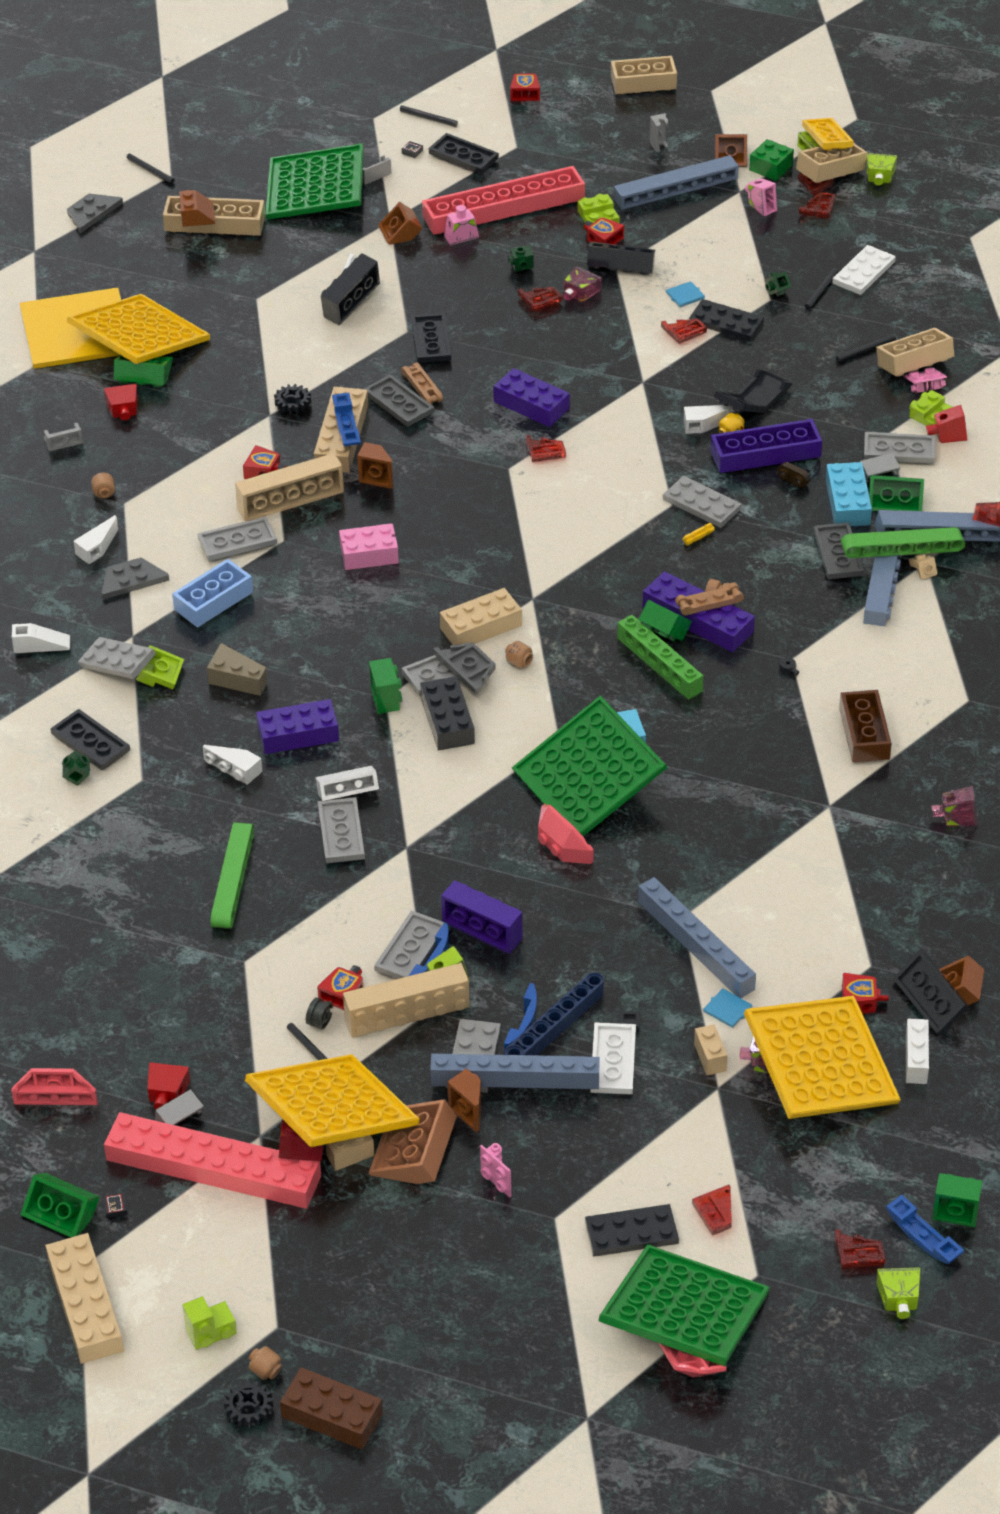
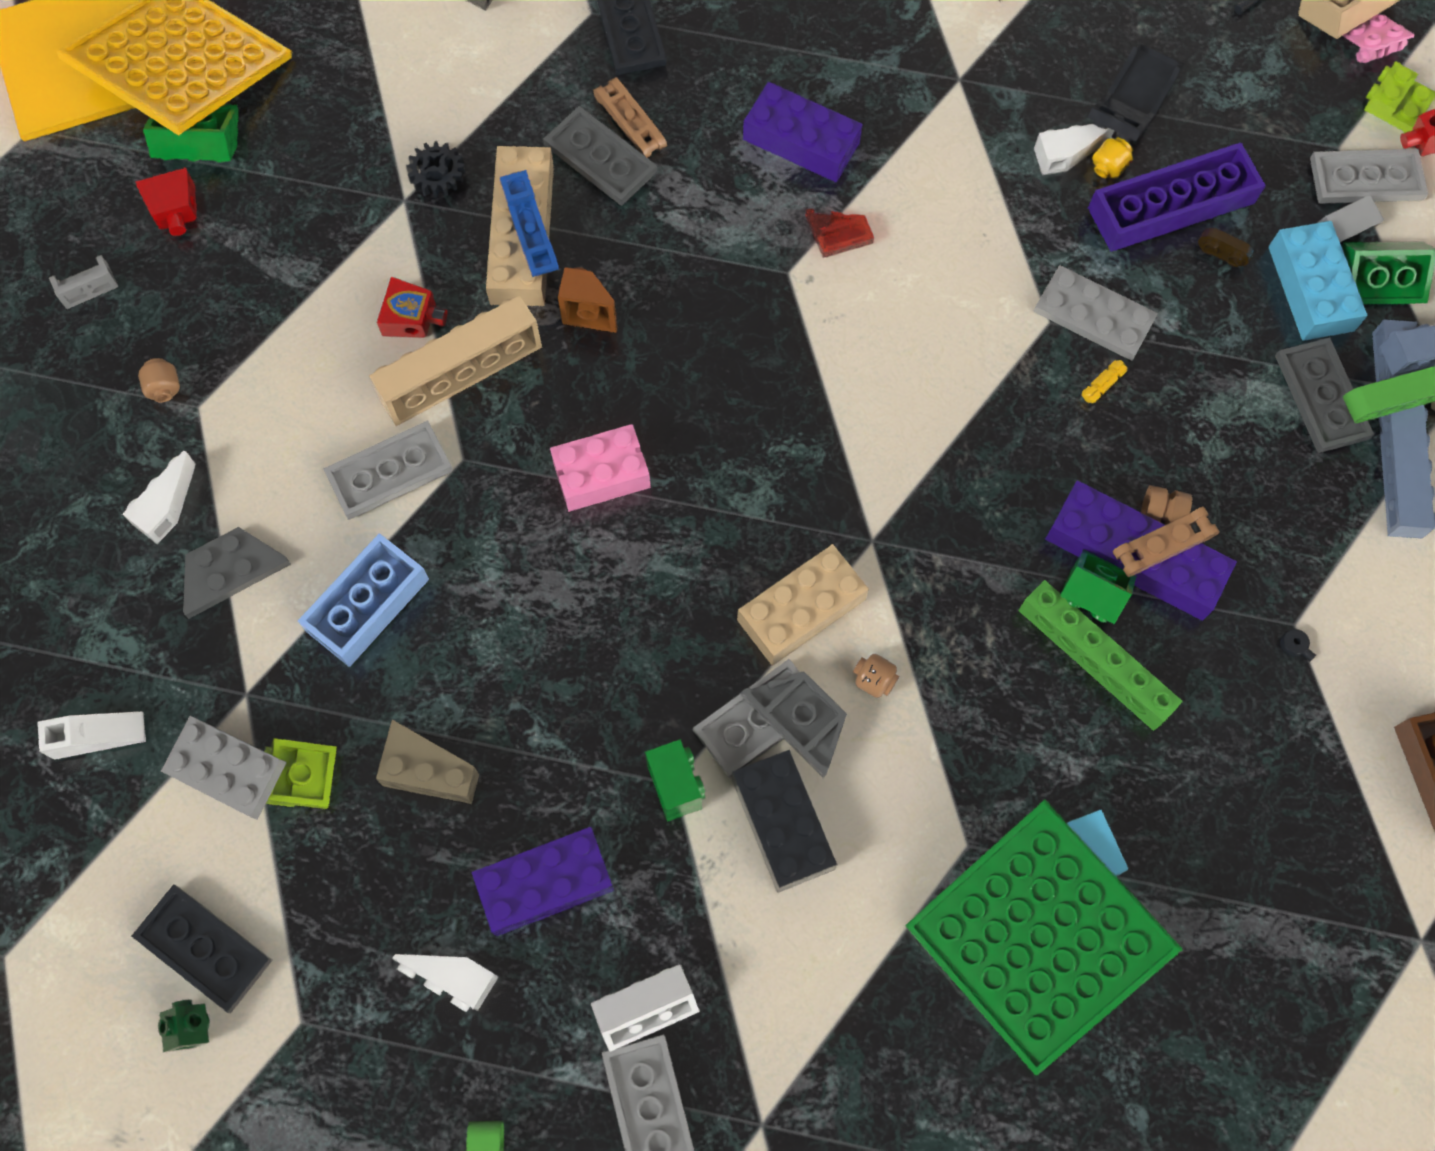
camera: 10 degrees left, 25 degrees up
(562, 837) = (1013, 1083): coral wedge -> none

